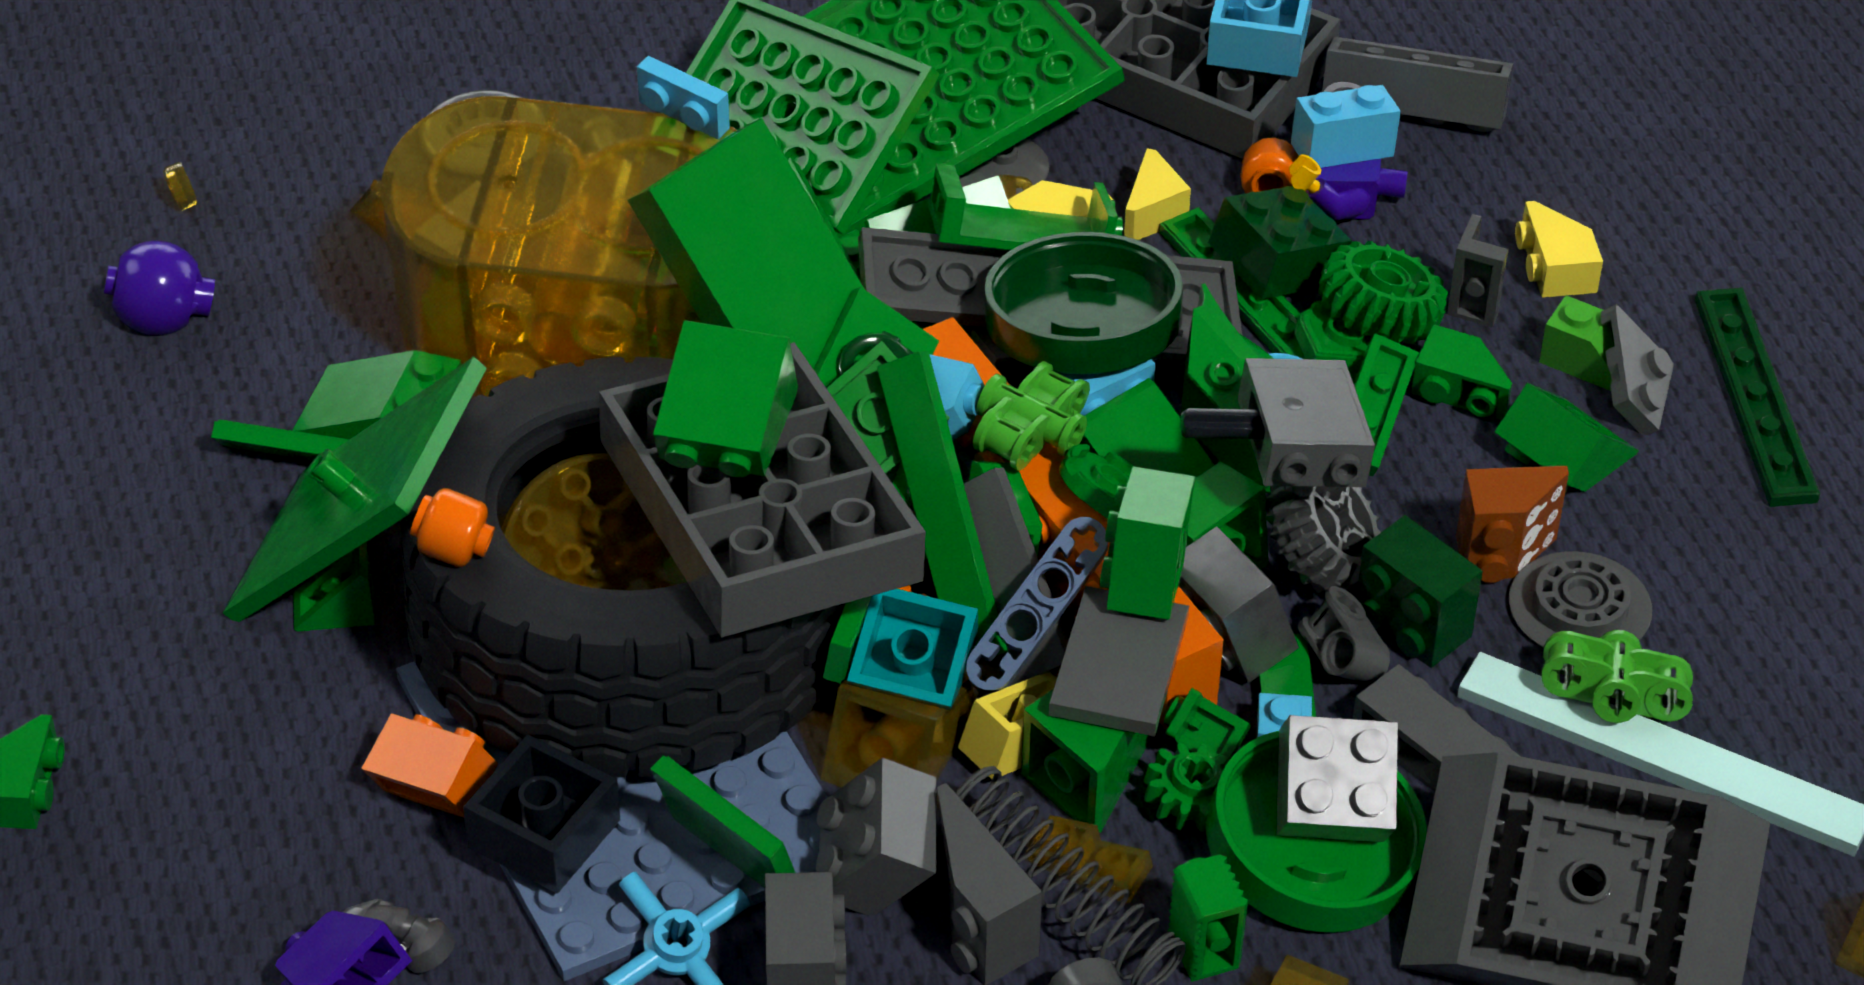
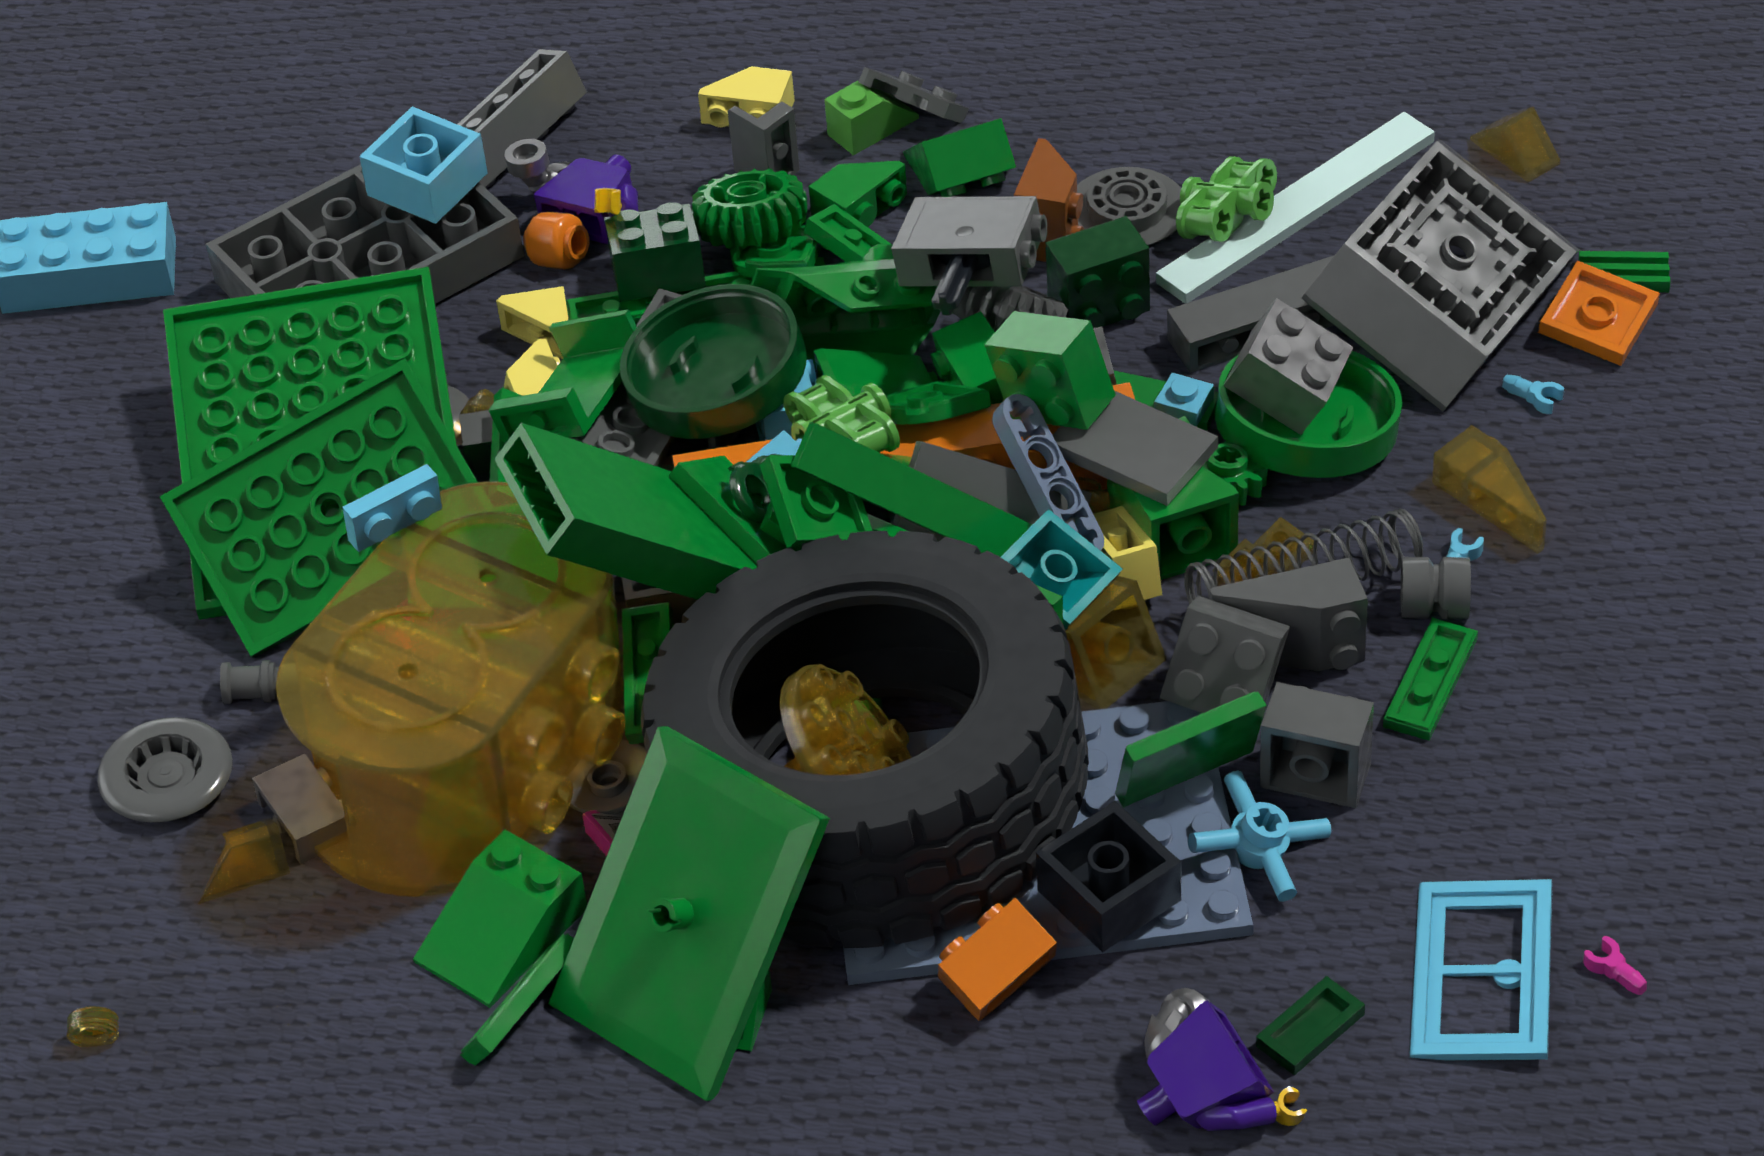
camera: 65 degrees left, 0 degrees up
(158, 288) = (245, 1065): dark purple brick -> none
(452, 527) = (871, 784): orange head -> none
(726, 399) = (861, 532): green slope -> none
(776, 544) = (918, 567): dark grey brick -> none
(1208, 916) = (1378, 482): green brick -> none
(1345, 638) = (1115, 332): dark grey piece -> none
(1346, 126) = (568, 160): medium azure brick -> none
(1757, 398) = (958, 46): dark green tile -> none

